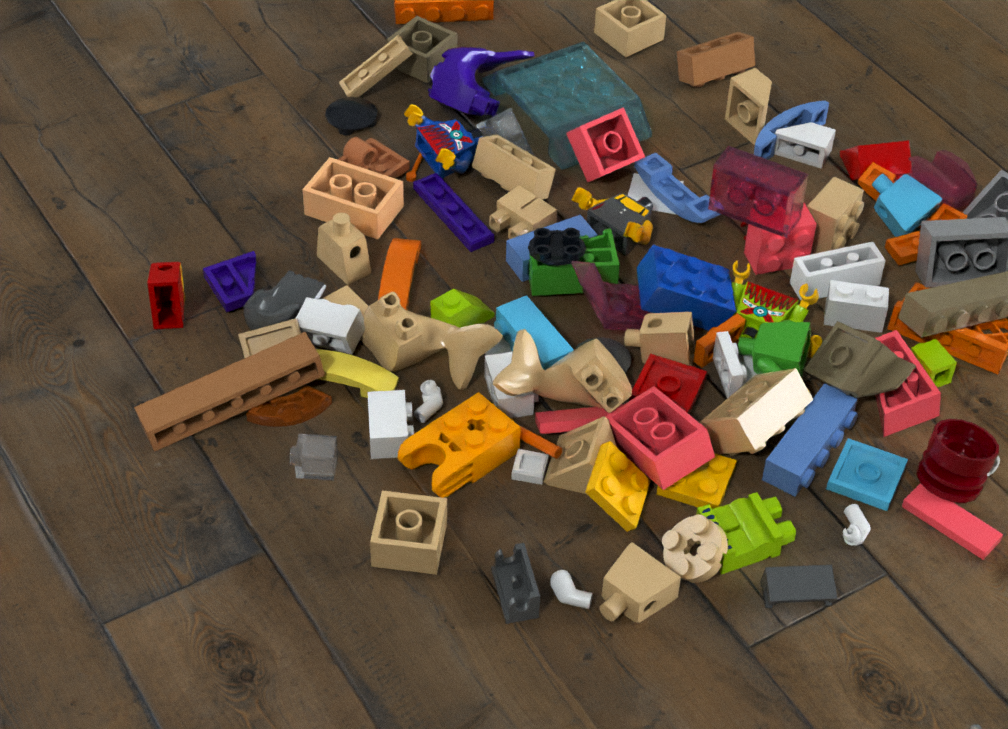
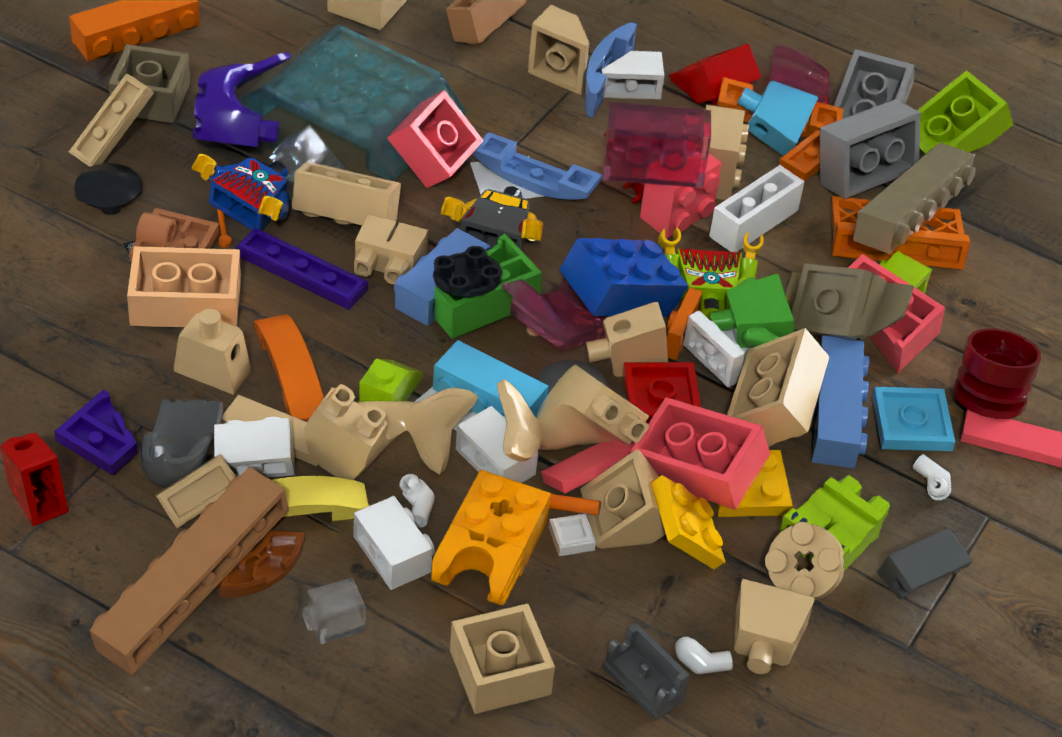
camera: 30 degrees left, 0 degrees up
(856, 305) = (796, 240): white brick -> none

